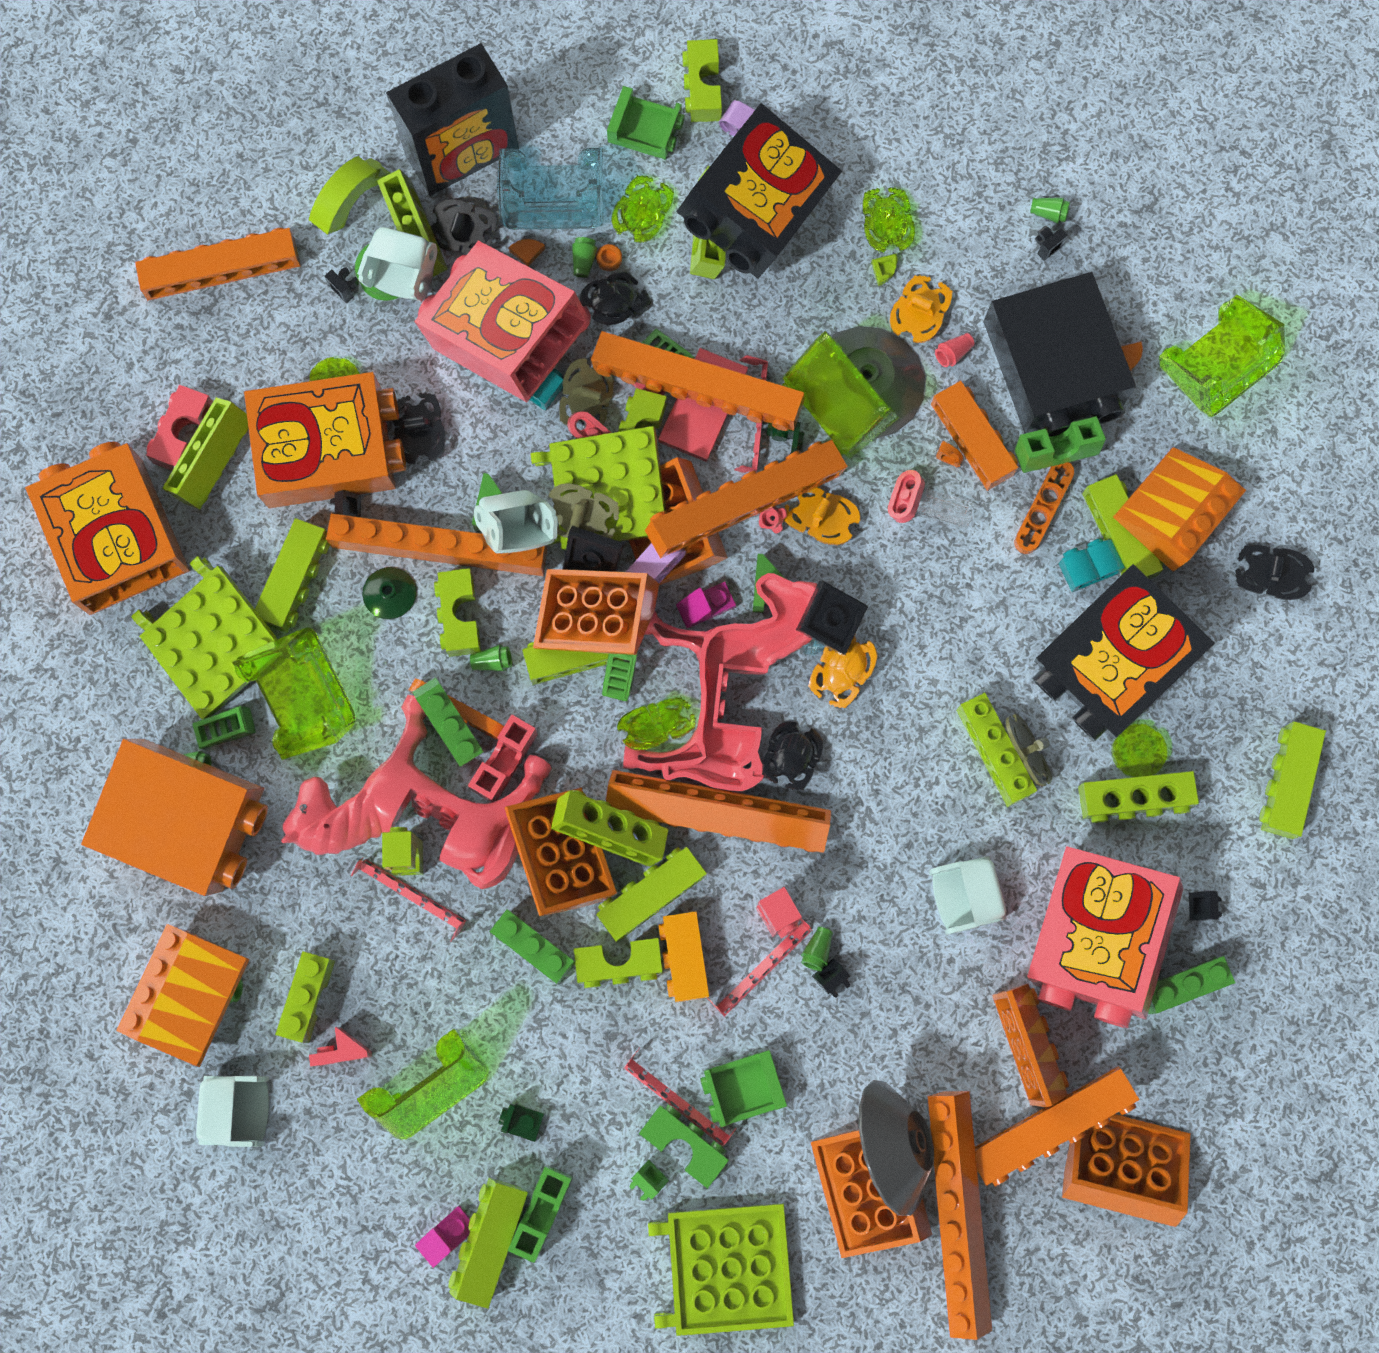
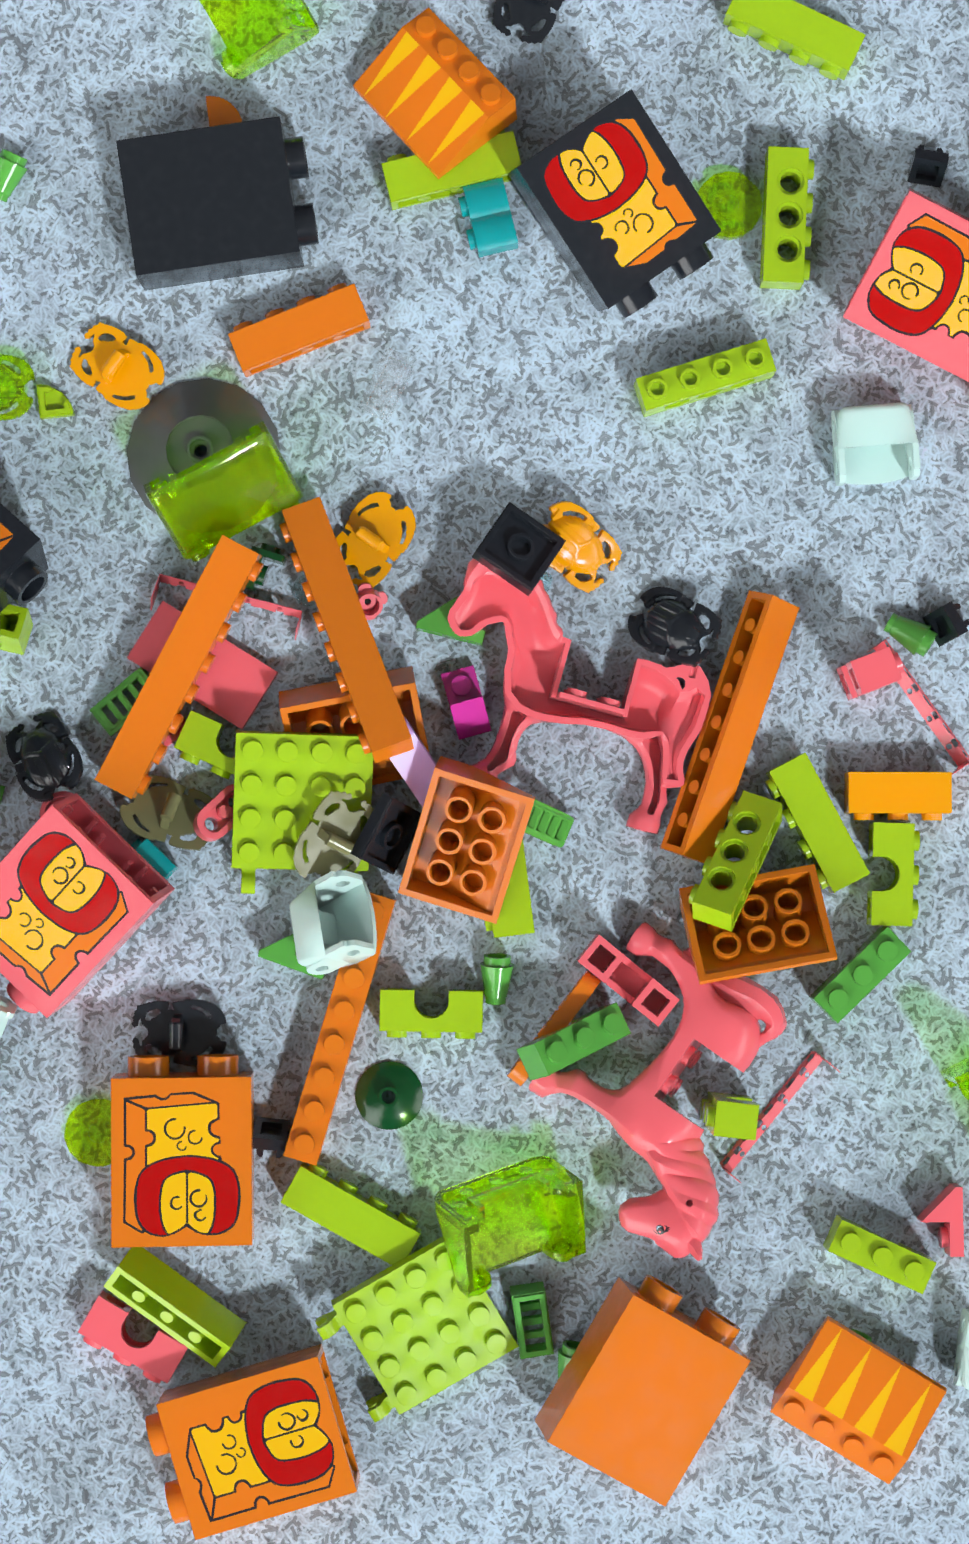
camera: 80 degrees left, 10 degrees up
(655, 724) = (609, 787): clear neon green shield -> none
(904, 497) = (365, 432): coral plate -> none
(949, 454) = (318, 367): orange tile -> none
(953, 350) = (181, 336): coral cone -> none
(1028, 748) = (711, 337): olive shield -> none
(1046, 508) = (407, 256): orange beam -> none
(1050, 242) = (53, 185): black tile -> none
(1079, 441) = (334, 210): bright green arch -> none

